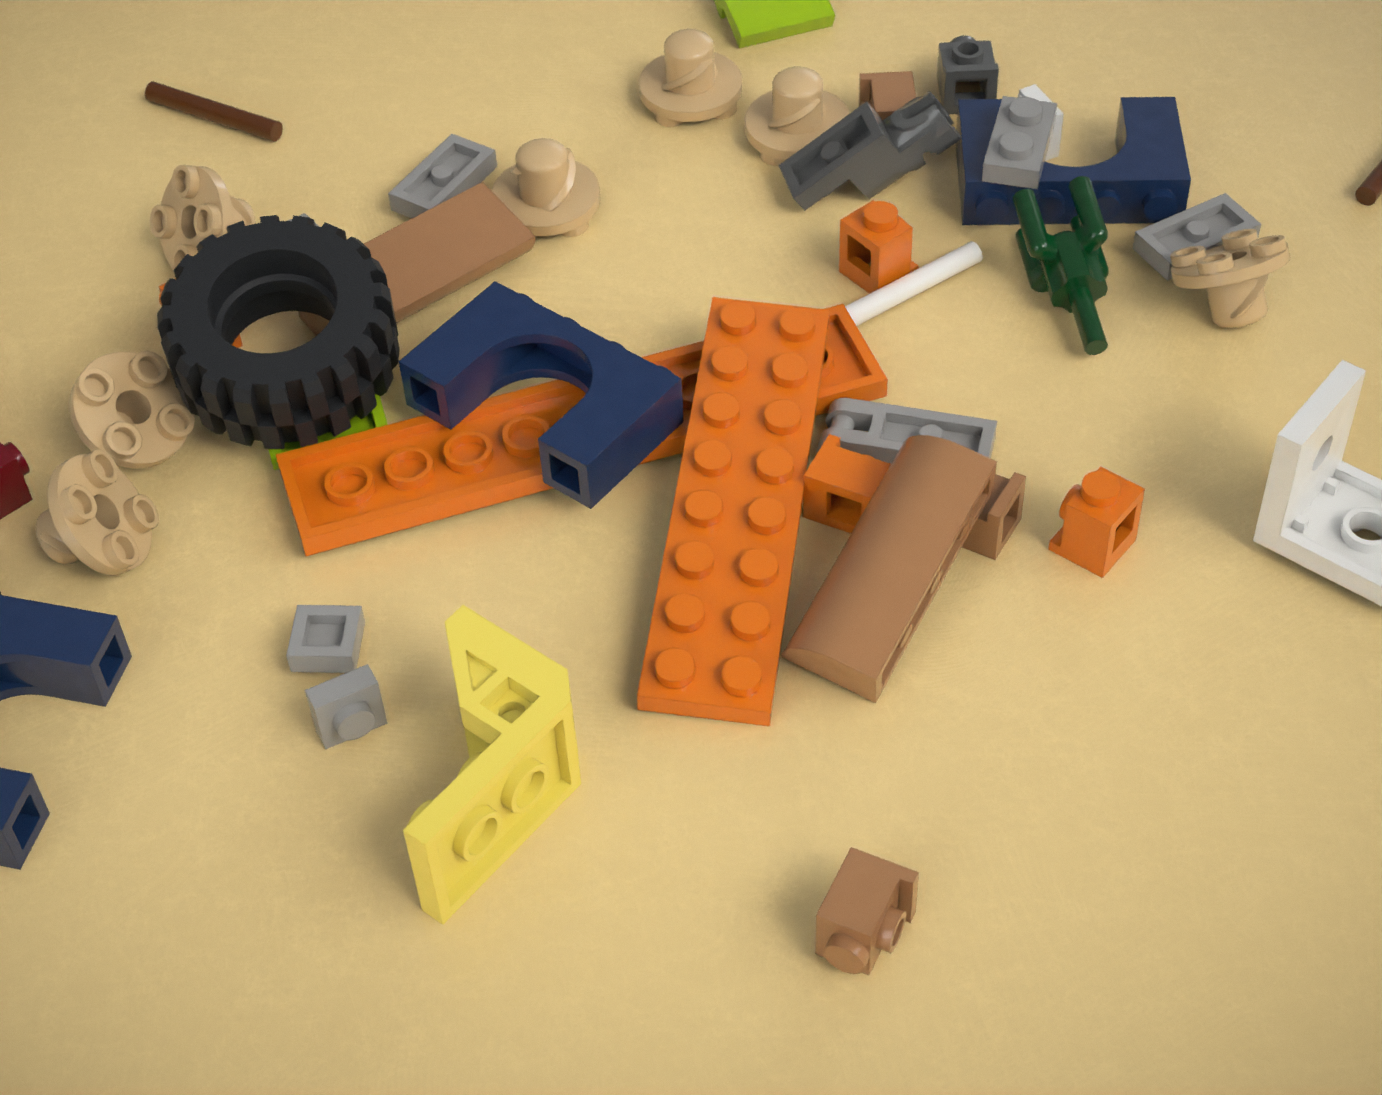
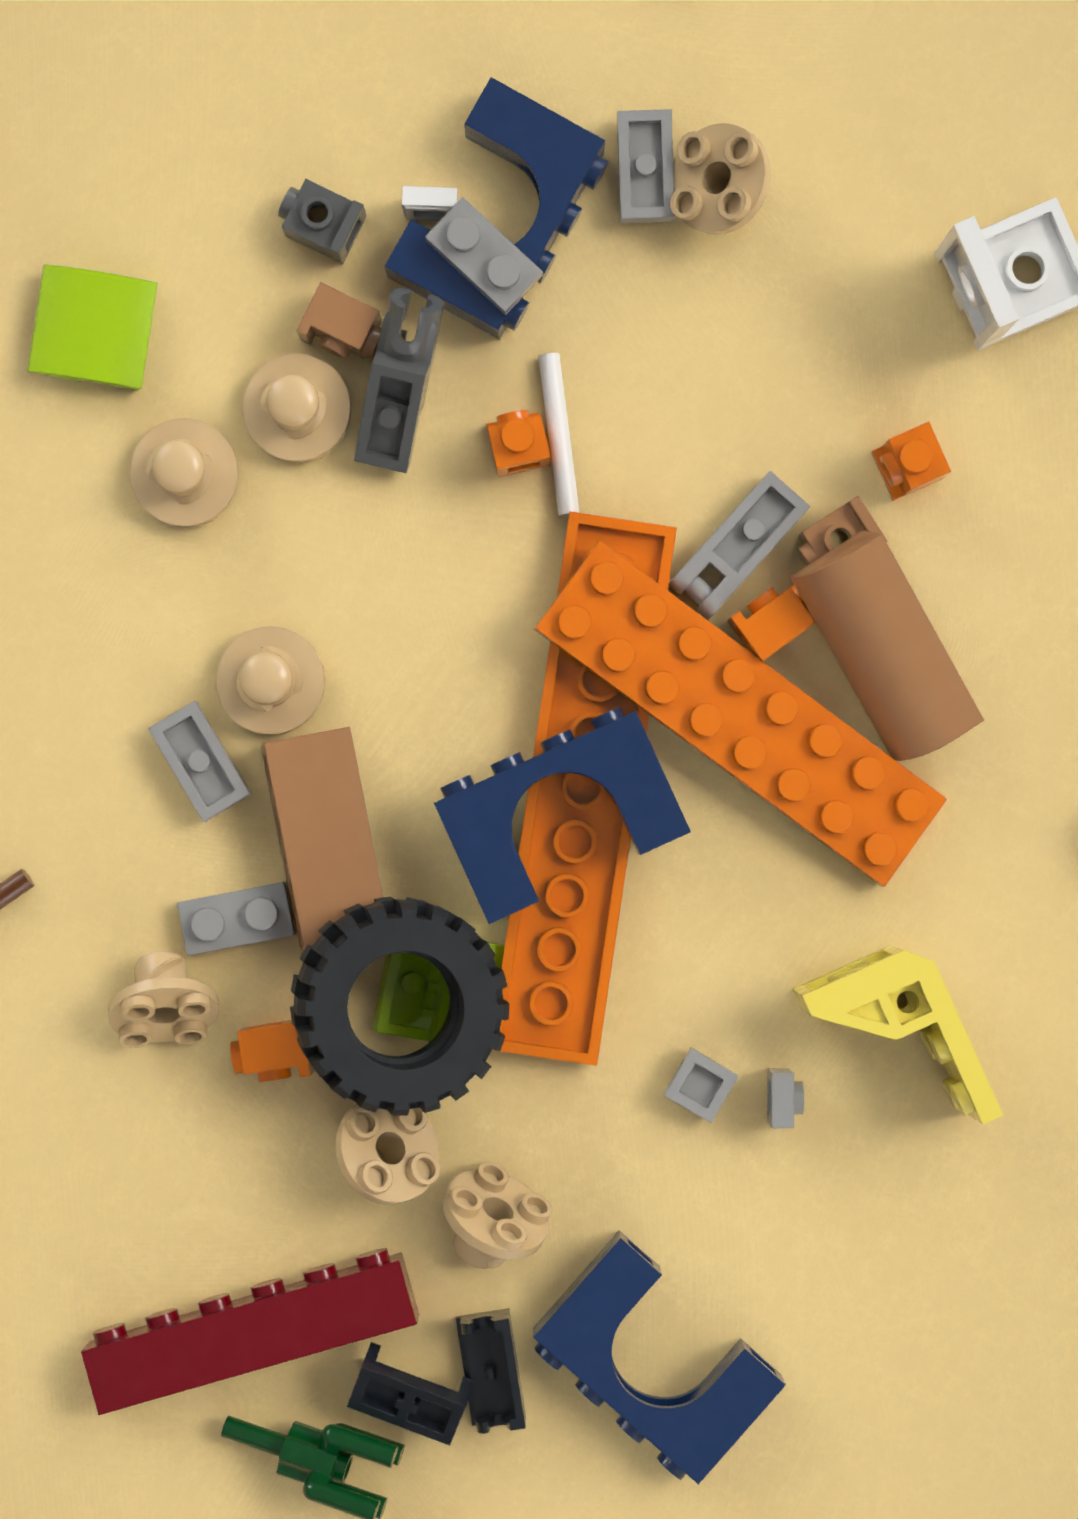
camera: 65 degrees left, 40 degrees up
(1069, 262) = (628, 297): dark green plant -> none

